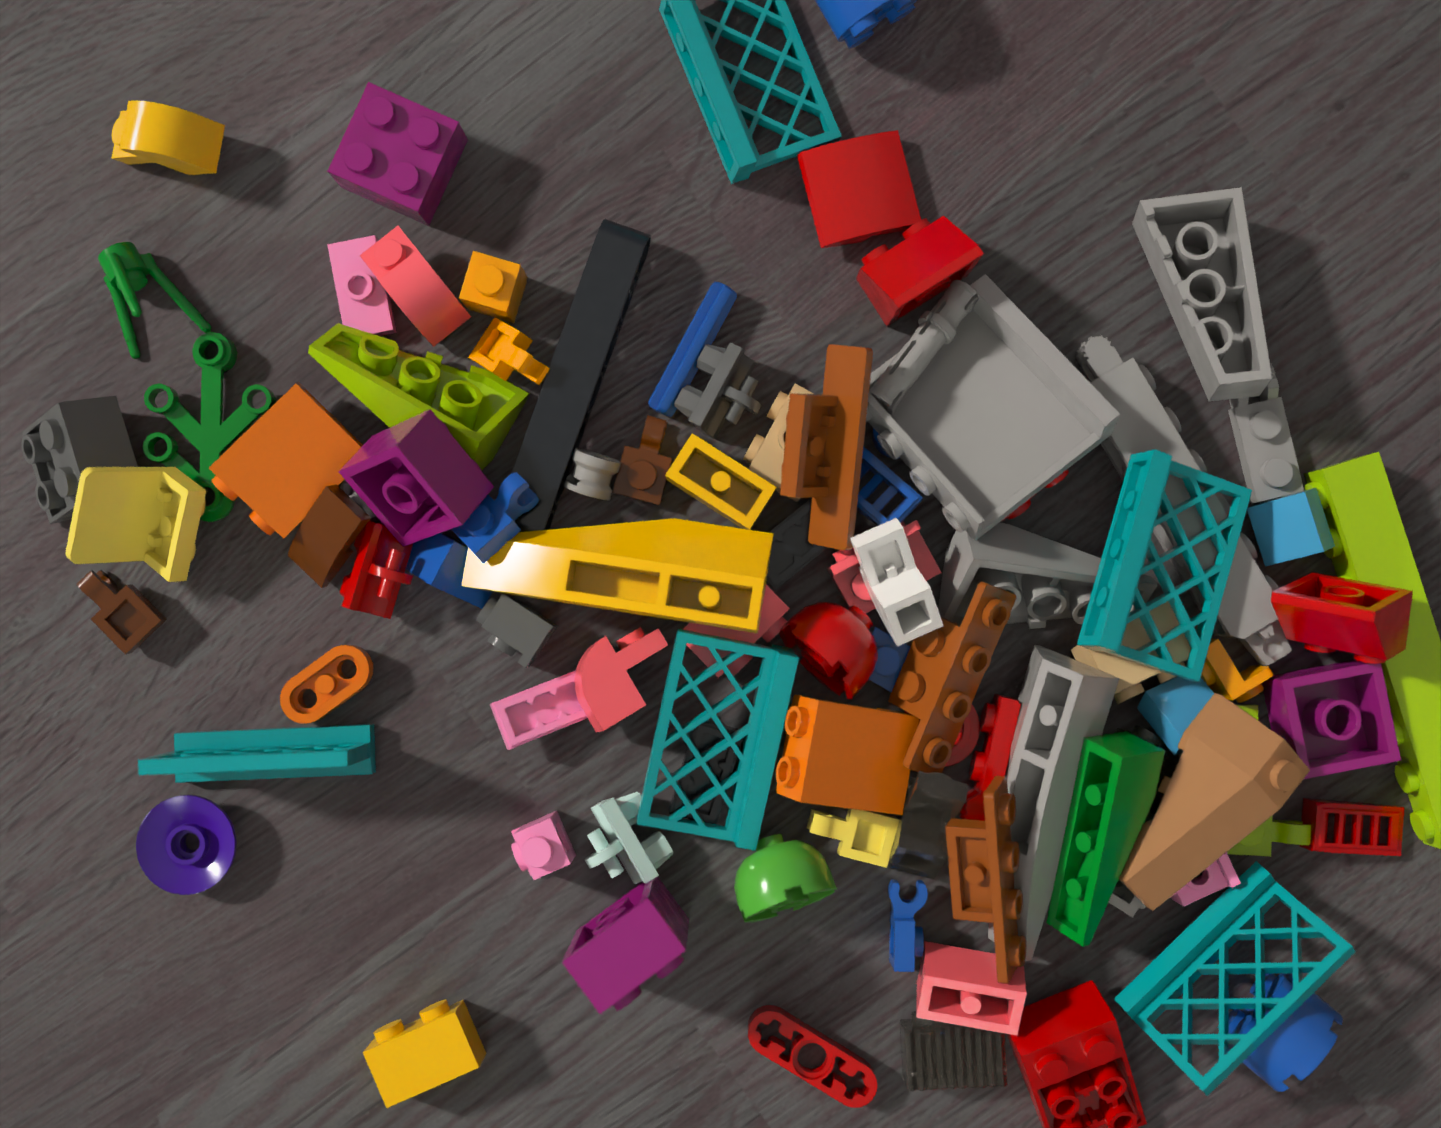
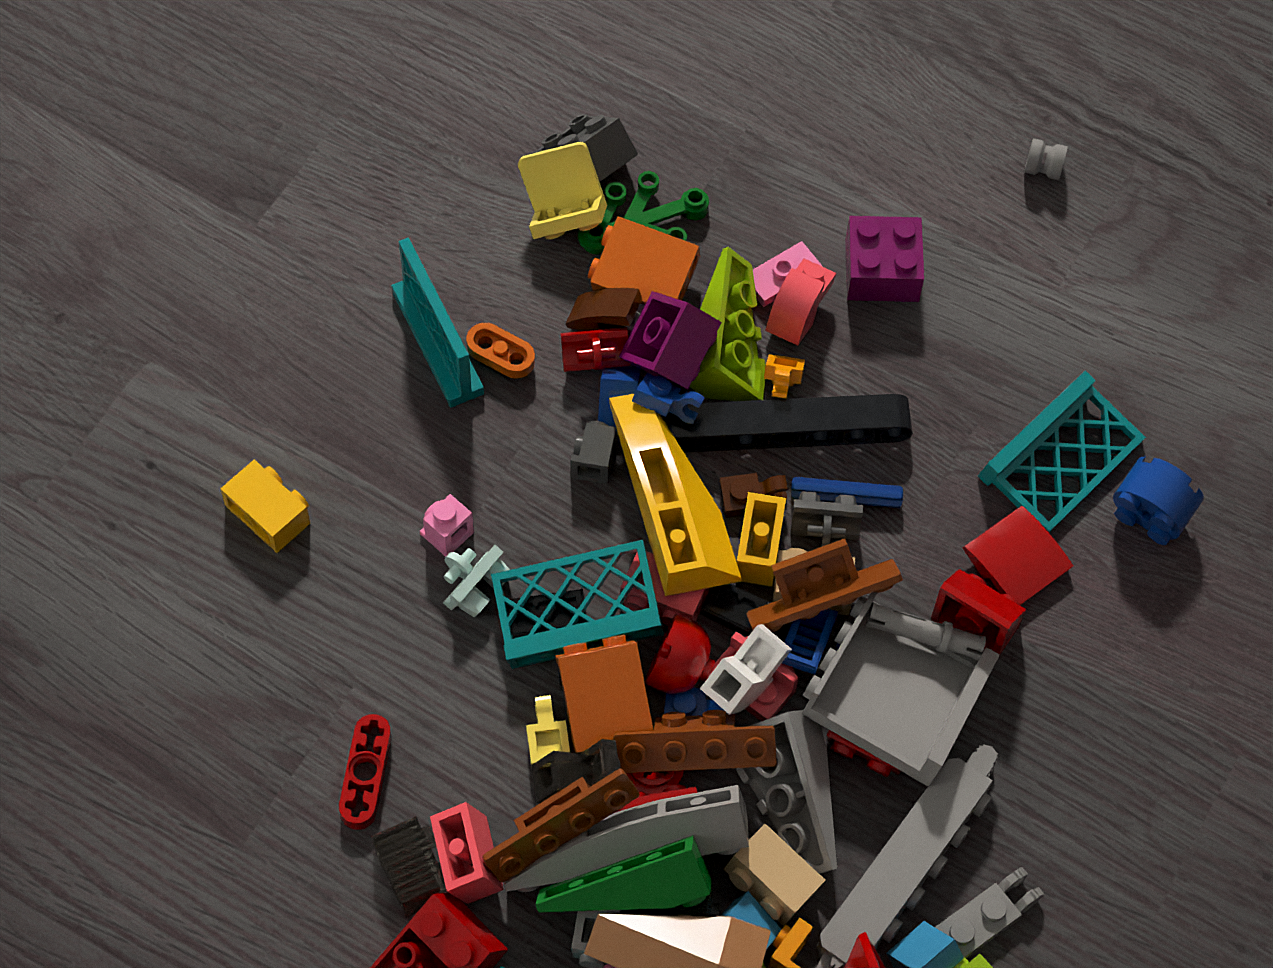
camera: 65 degrees right, 25 degrees down
(124, 614) = (494, 213): reddish brown plate -> none
(127, 274) = (721, 134): green plant -> none
(164, 851) = (348, 293): dark purple dish -> none
(167, 137) = (823, 123): yellow brick -> none
(493, 286) = (824, 348): light orange brick -> none
(538, 711) = (545, 491): bright pink plate -> none
(592, 474) = (726, 458): light grey wheel -> none
(602, 678) = (588, 514): coral brick -> none
(627, 945) = (407, 590): magenta brick -> none
(781, 878) = (490, 690): bright green cylinder -> none
(905, 938) = (490, 792): blue plate -> none
(1131, 543) = (844, 820): teal fence -> none
(1210, 285) = (1075, 814): light grey wedge -> none

